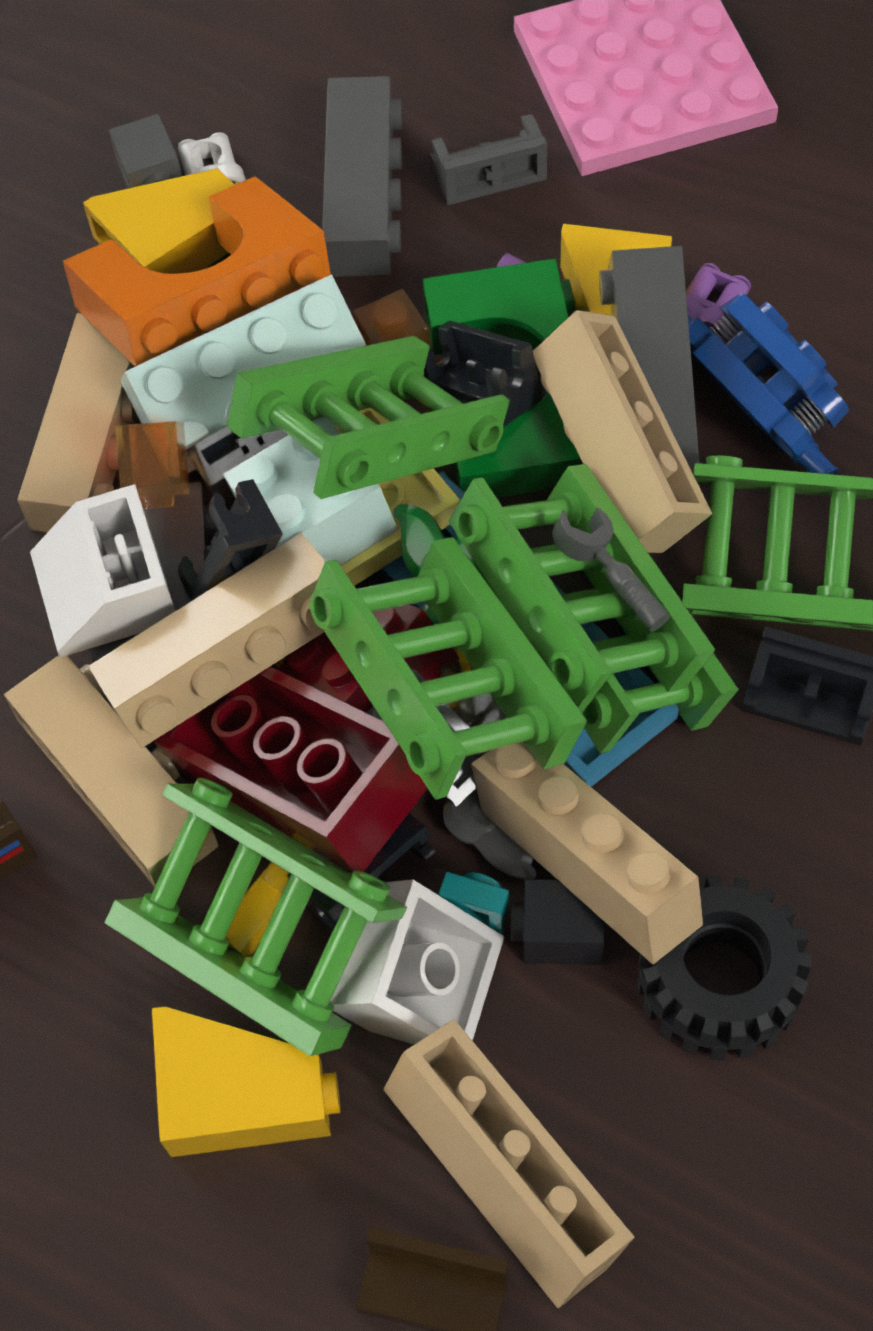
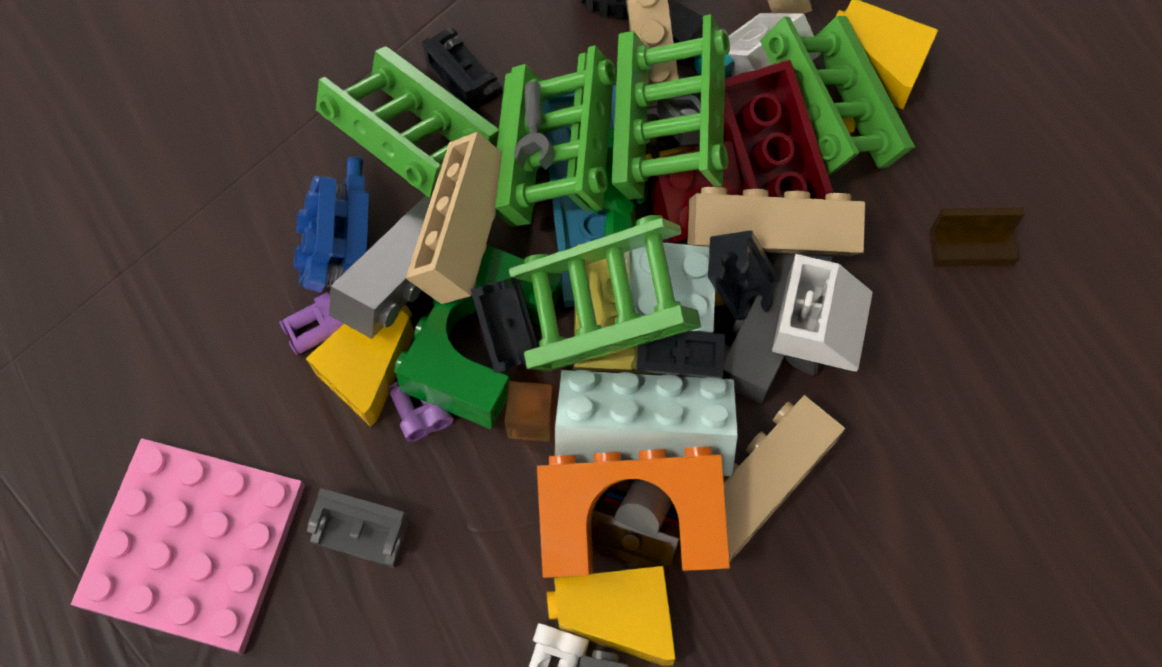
camera: 150 degrees left, 5 degrees up
(103, 762) = (882, 263): tan brick -> none
(154, 461) = (750, 370): clear orange brick -> none
(359, 176) = (455, 570): dark grey brick -> none

